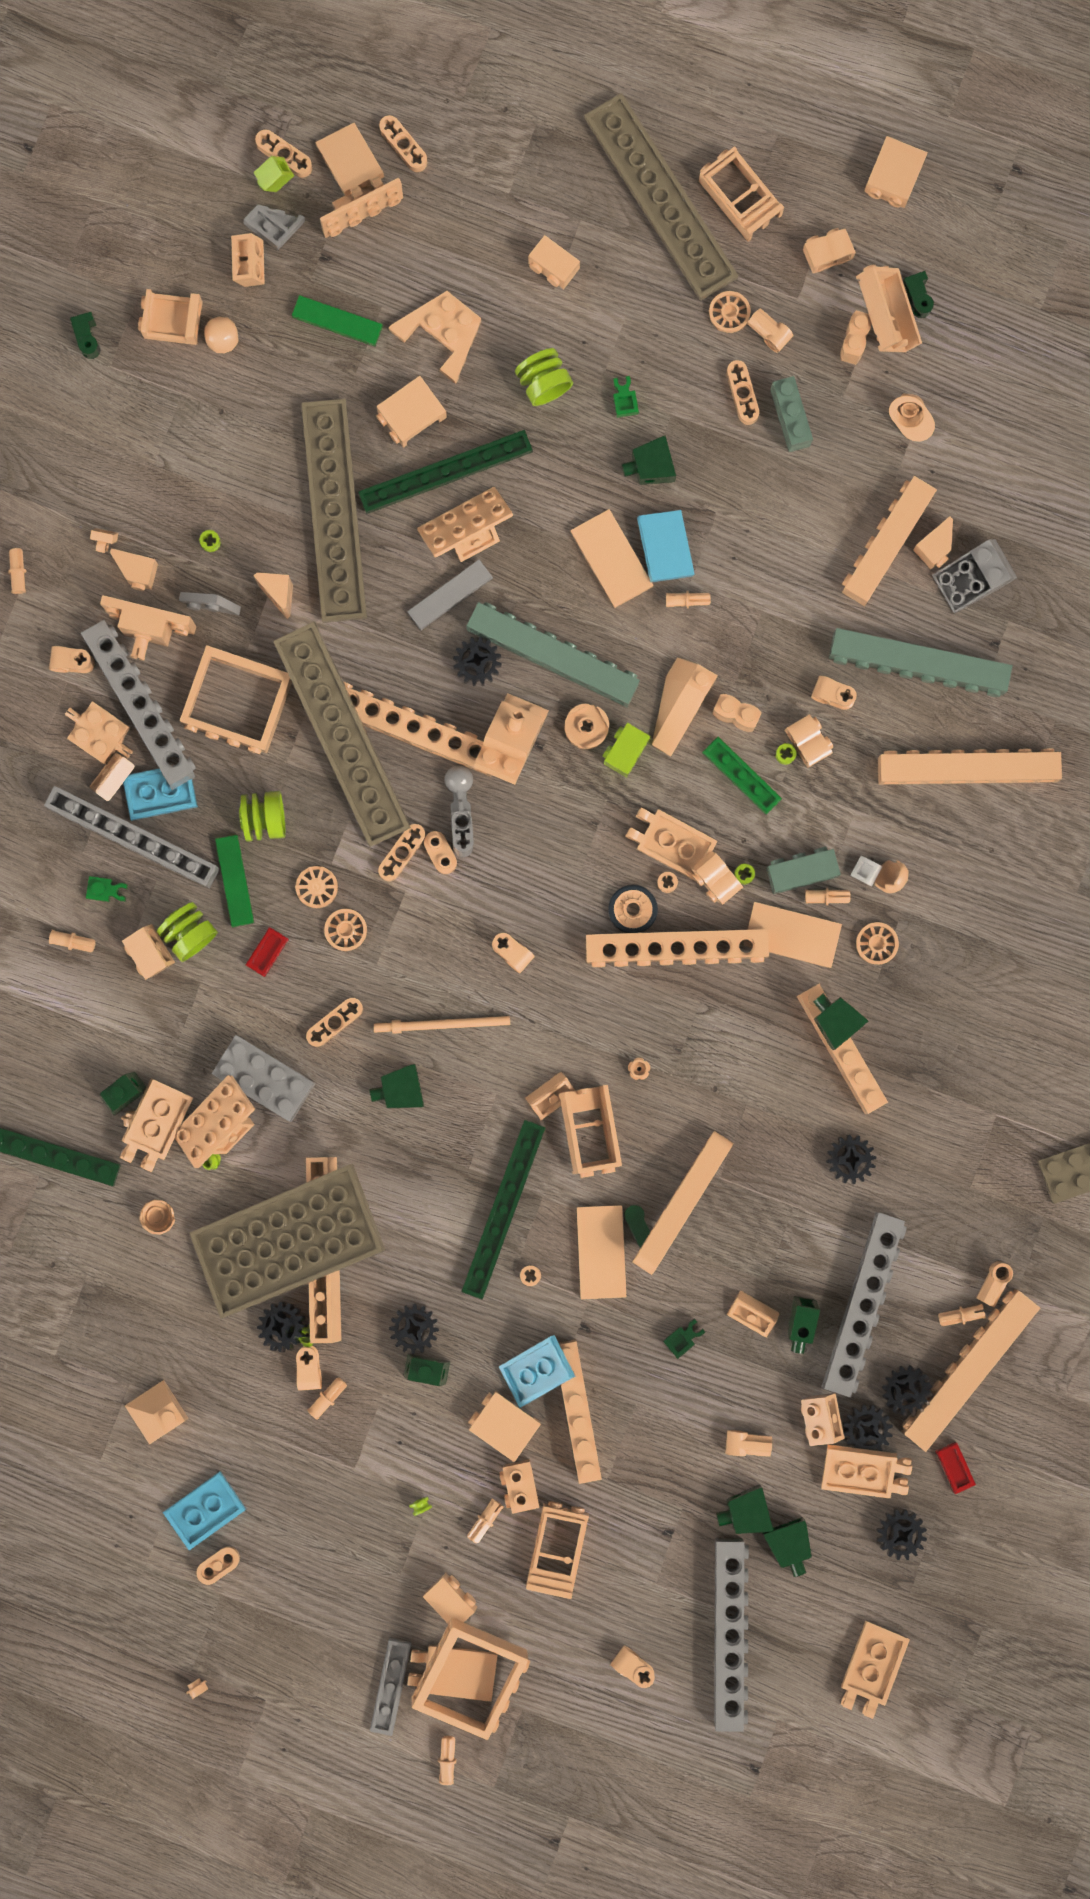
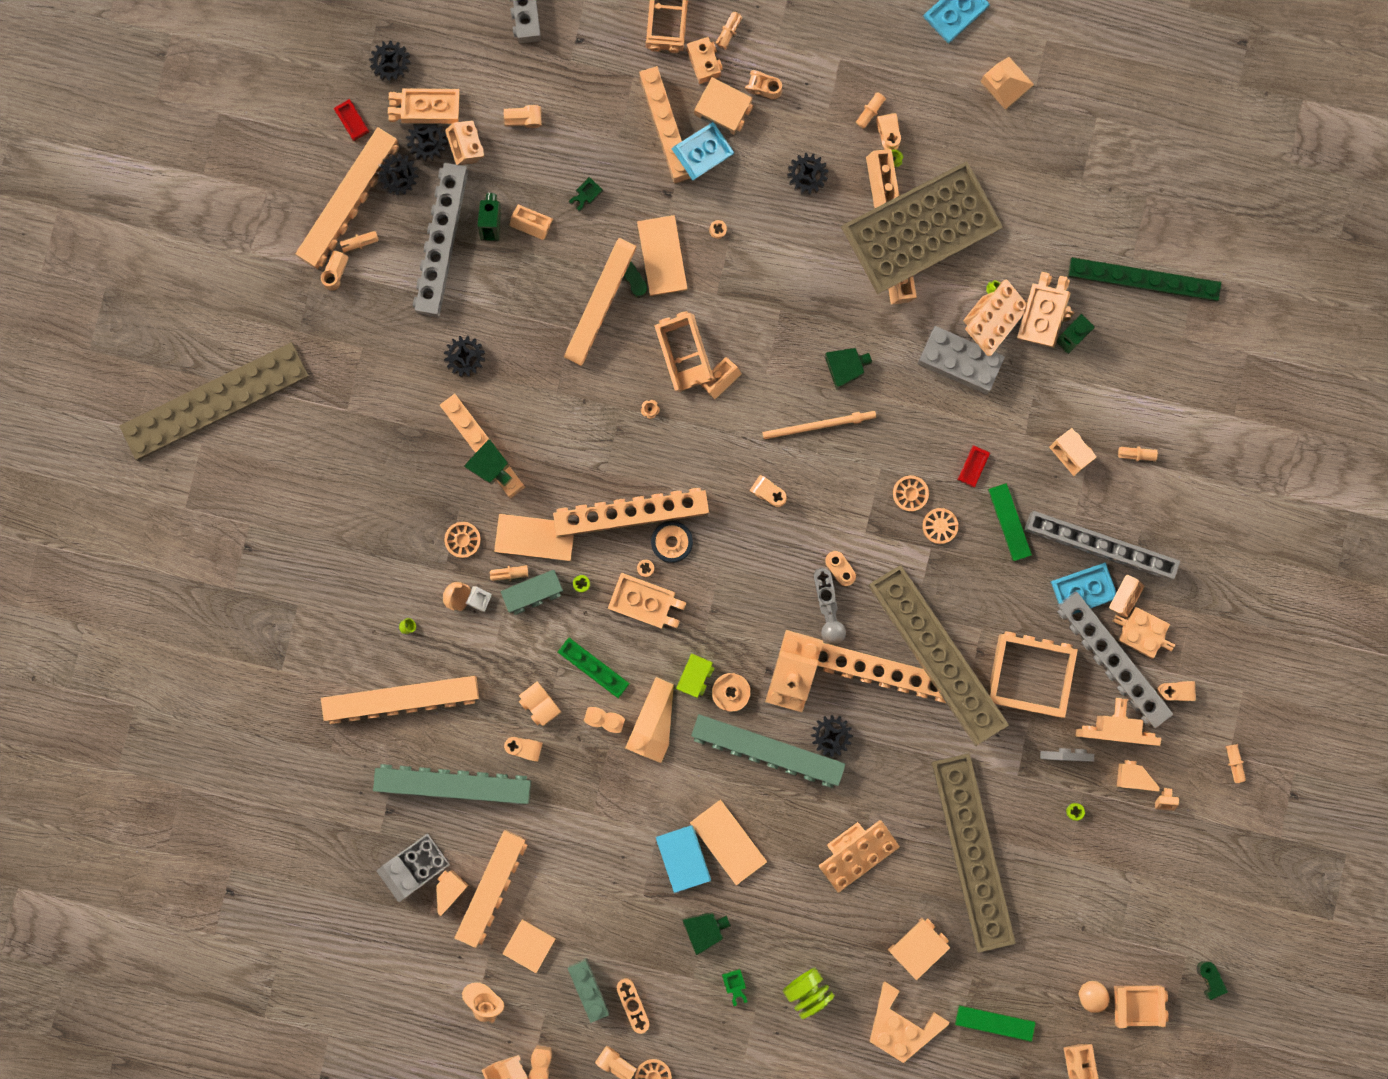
camera: 175 degrees right, 0 degrees up
(102, 889) = (1119, 500): green plate -> none
(157, 1217) = (1031, 236): light nougat hair -> none
(190, 935) = (1043, 471): lime wheel -> none
(262, 816) = (994, 577): lime wheel -> none
(278, 590) = (1010, 772): light nougat slope -> none
(290, 1331) = (907, 158): black gear -> none
(325, 1038) = (914, 401): light nougat beam -> none
(397, 870) = (884, 554): light nougat beam -> none
(420, 1506) = (782, 35): lime bush -> none
(426, 1370) = (792, 141): dark green torso -> none
(445, 471) = (882, 899): dark green plate -> none
(450, 595) = (863, 791): light grey tile -> none
(453, 1446) = (762, 85): none -> light nougat piece
(503, 1209) = (747, 279): dark green plate -> none
(687, 599) = (658, 814): light nougat axle -> none
(716, 878) = (604, 575): light nougat brick -> none
(747, 1512) = (517, 62): dark green torso -> none
(783, 747) = (556, 685): lime bush -> none
(790, 1545) = (480, 41): dark green torso -> none
(852, 473) = (529, 946): none -> light nougat tile
(952, 850) = (407, 626): none -> lime hinge

